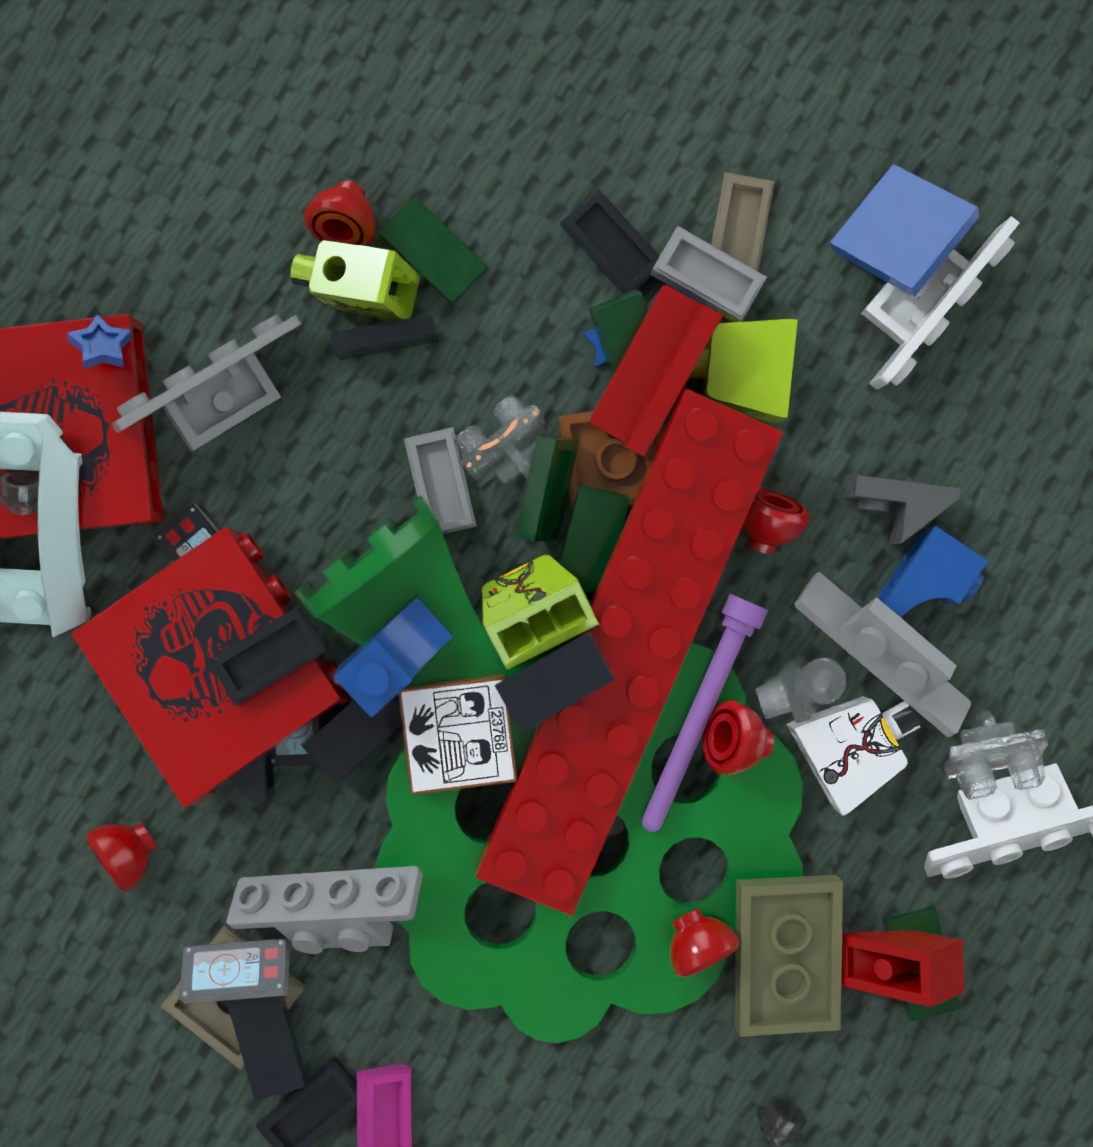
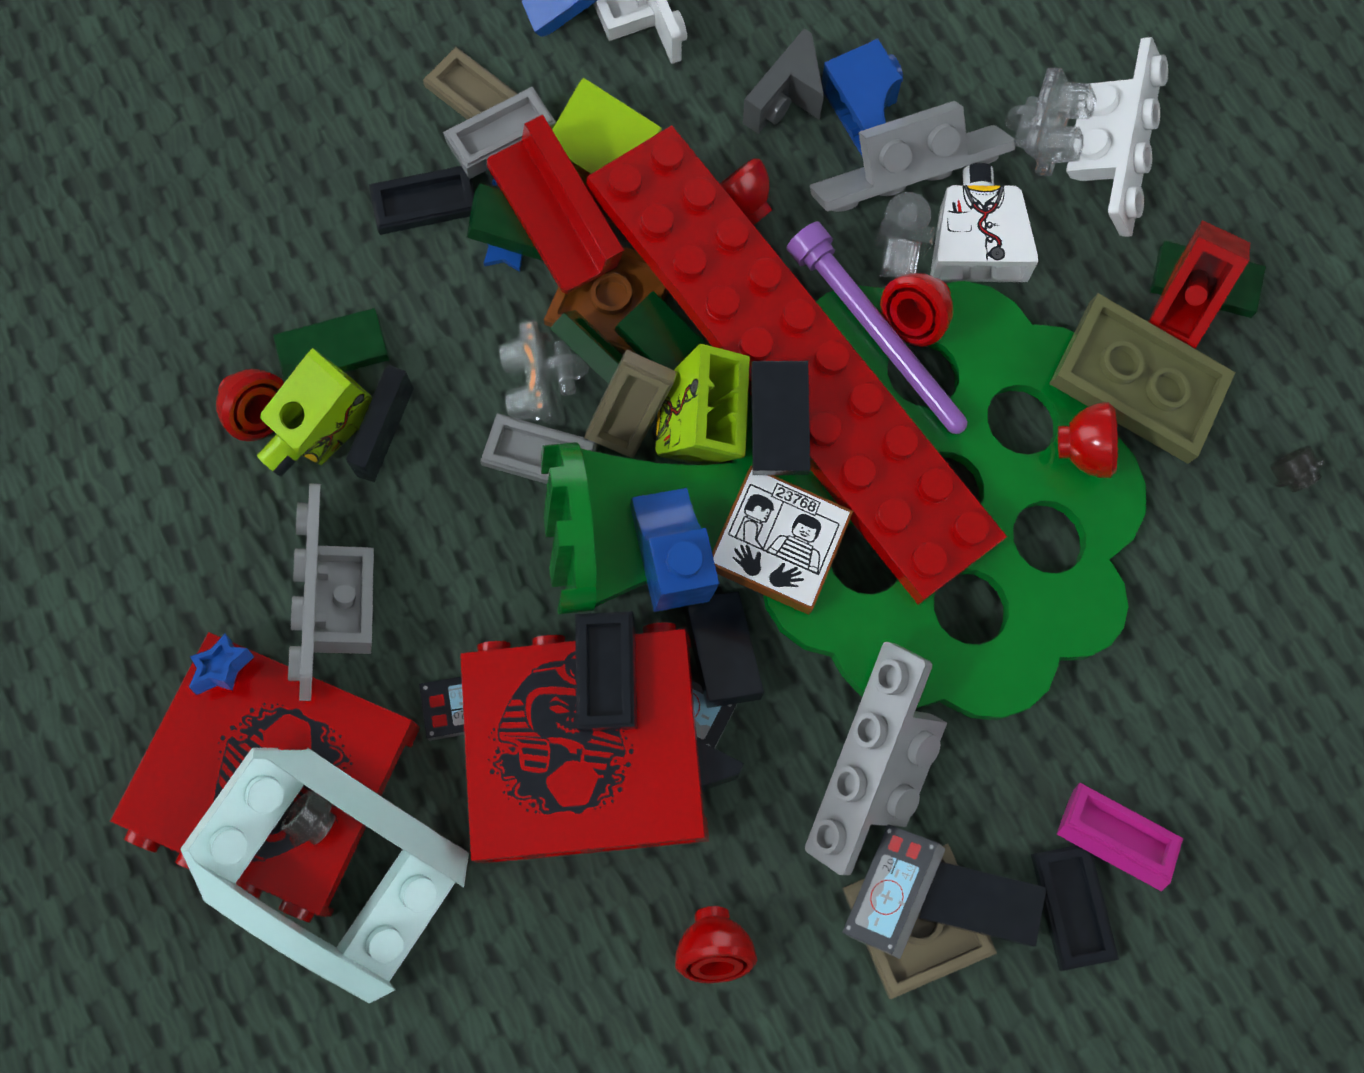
camera: 60 degrees left, 15 degrees down
(512, 540) = (630, 404): none -> dark tan tile

